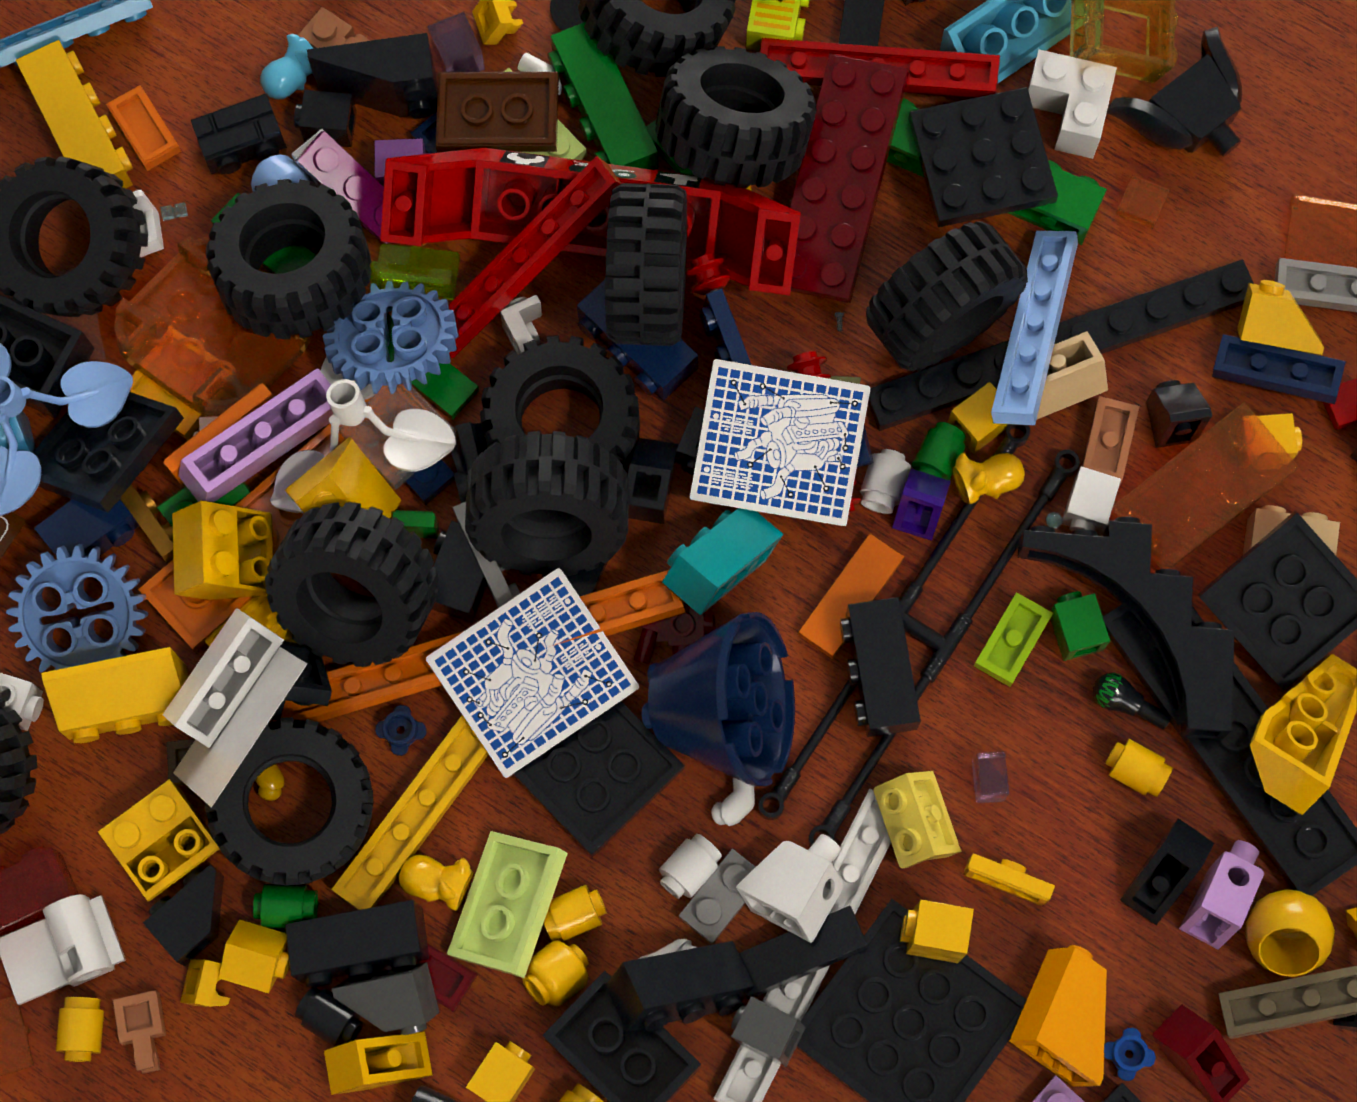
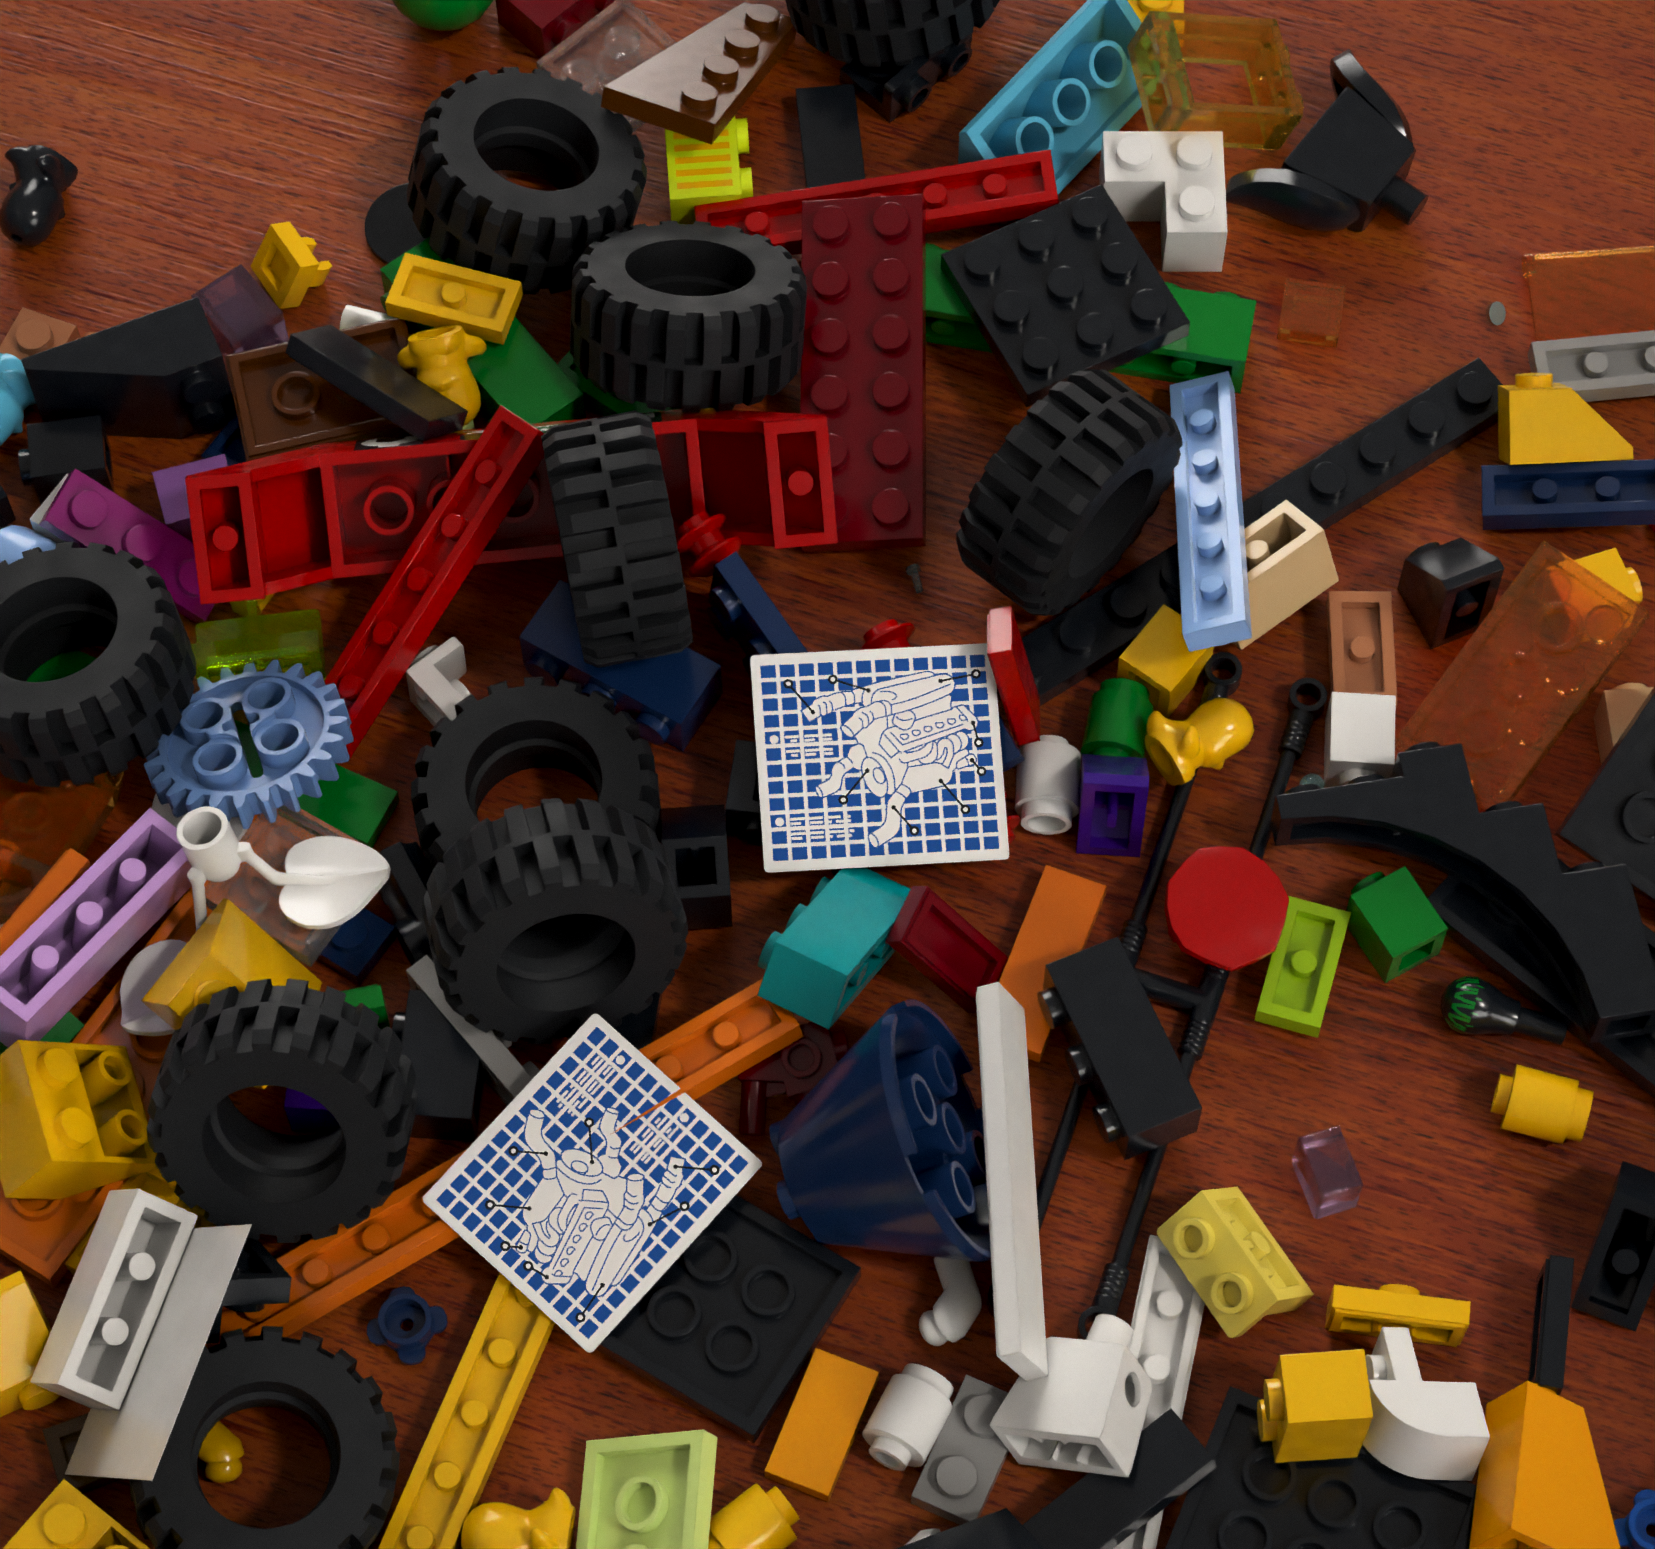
camera: 15 degrees left, 10 degrees down
(526, 116) = (376, 382): none -> black tile
(571, 122) = (442, 364): none -> yellow animal
(590, 69) = (454, 295): none -> yellow plate
(636, 856) = (821, 1424): none -> light orange tile
(789, 737) = (1011, 1183): none -> white tile
(791, 575) = (945, 947): none -> dark red tile
(878, 409) = (1013, 675): none -> red tile
(973, 593) = (1225, 907): none -> red hat
(999, 955) = (1421, 1425): none -> white brick
(1102, 911) = (1551, 1323): none -> black tile
(1263, 230) = (1495, 313): none -> light grey piece

